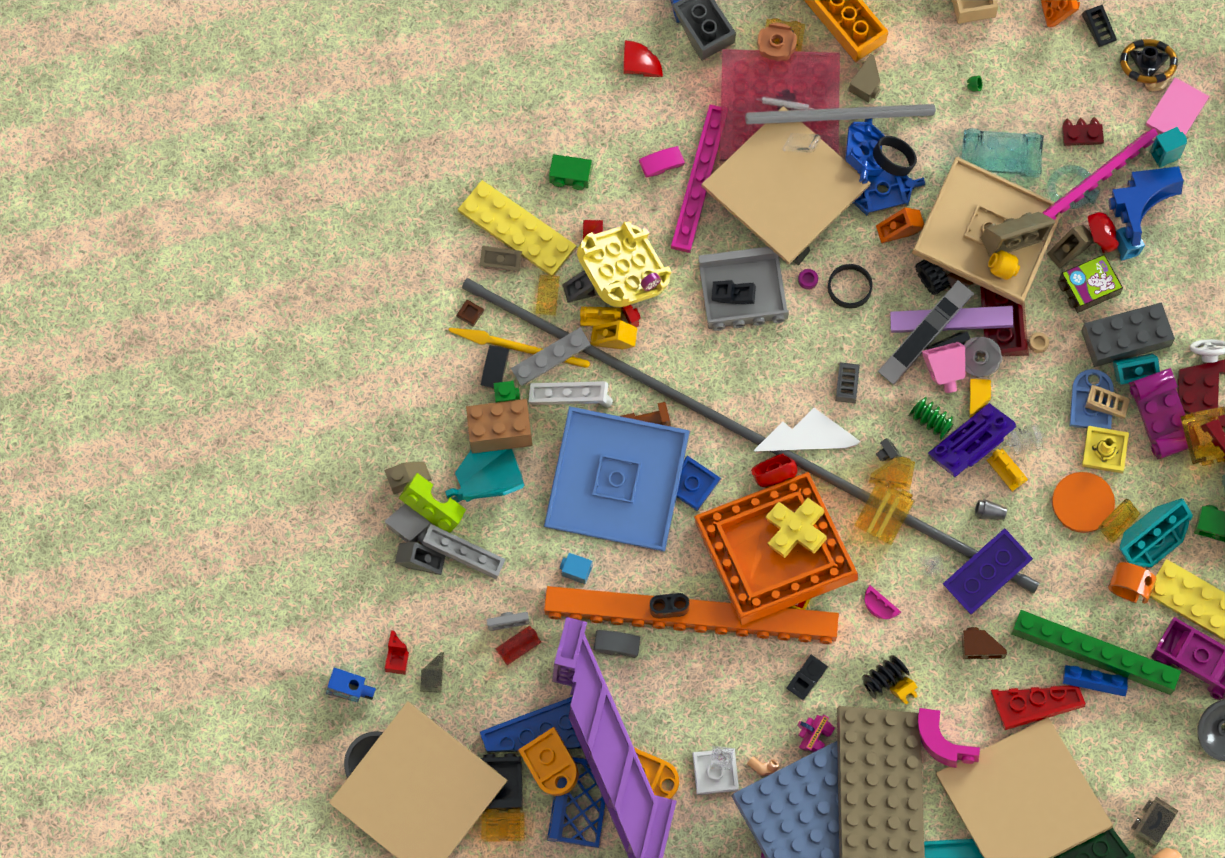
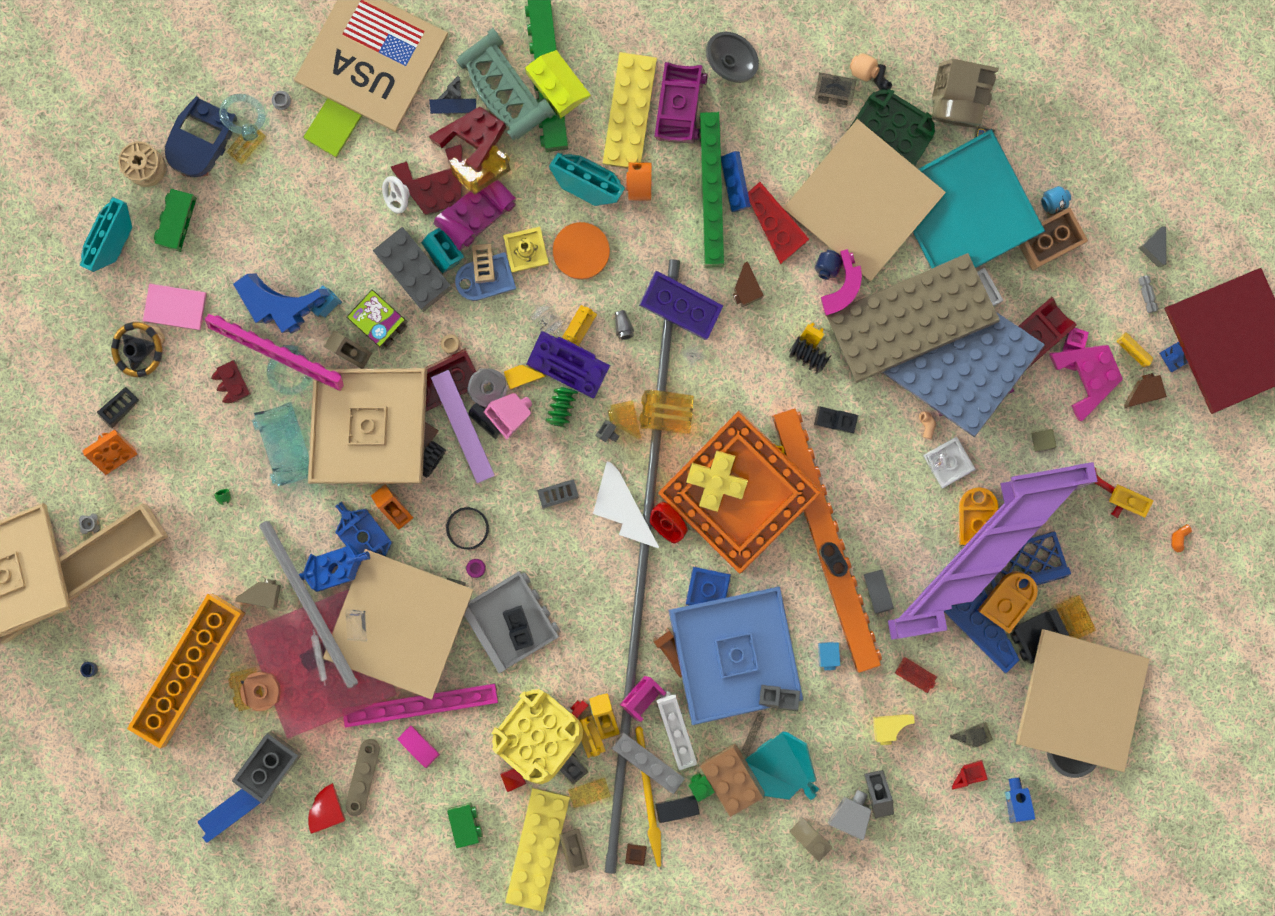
camera: 115 degrees left, 15 degrees up
(419, 497) = (832, 820): lime arch -> none
(463, 551) = (858, 759): light grey plate -> none
(480, 593) = (887, 727): none -> light yellow arch
(508, 620) = (899, 693): light grey plate -> none
(543, 473) = (753, 734): none -> dark tan piece
(556, 501) = (779, 698): none -> dark grey slope
(615, 375) = (641, 697): none -> dark pink panel
(650, 281) = (544, 704): magenta tile -> none
(656, 103) = (362, 777): none -> dark tan plate
(811, 730) = (882, 396): dark pink hips -> none
(879, 605) = (747, 385): dark pink tile -> none
(889, 166) = (340, 546): black tyre -> none
(925, 332) = (485, 443): tile -> none
(970, 734) = (828, 264): none -> dark blue head
(1003, 265) = (399, 397): yellow head -> none
(1017, 233) = (364, 399): dark tan slope -> none
(1103, 231) = (324, 326): red piece -> none
(1119, 520) = (585, 214): clear yellow tile -> none
(1168, 147) = (217, 299): teal brick -> none

